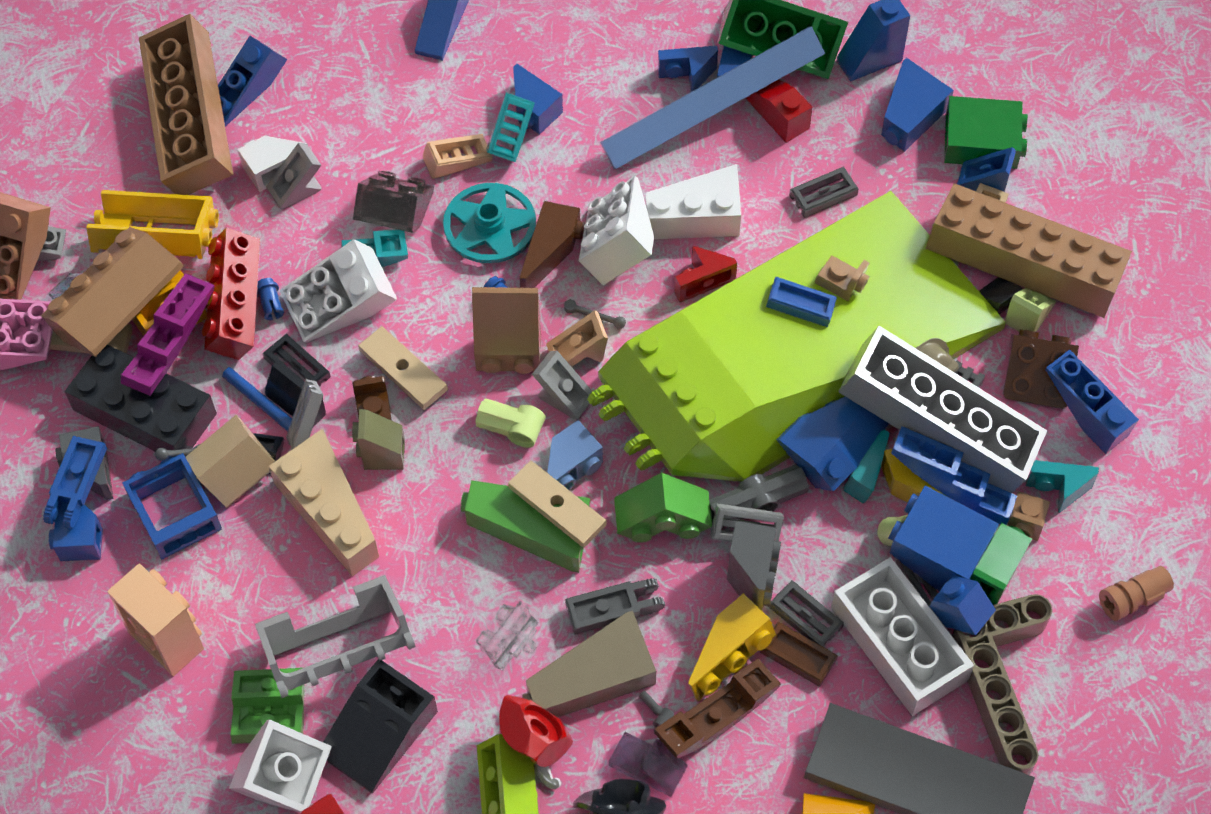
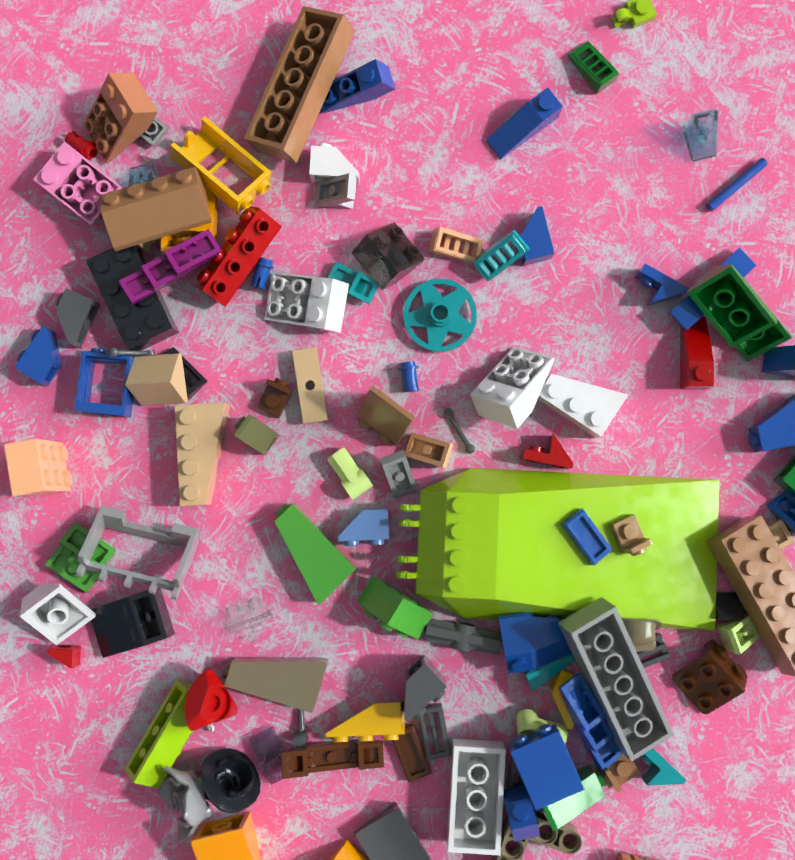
camera: 40 degrees right, 25 degrees up
(74, 479) = (51, 331): blue hinge -> none
(257, 398) = (209, 343): blue bar -> none
(285, 391) = (230, 358): black slope -> none
(304, 413) = (222, 383): light grey tile -> none
(322, 372) = (252, 354): black tile -> none
(544, 491) = (333, 579): tan tile -> none
(551, 241) = (469, 359): reddish brown slope -> none
(608, 604) = (321, 642): dark grey hinge -> none
(712, 97) = (655, 329): medium blue tile -> none
(719, 520) = (439, 654): light grey tile -> none
(825, 196) = (654, 443): dark grey tile -> none
(1091, 402) = (720, 733): blue slope -> none

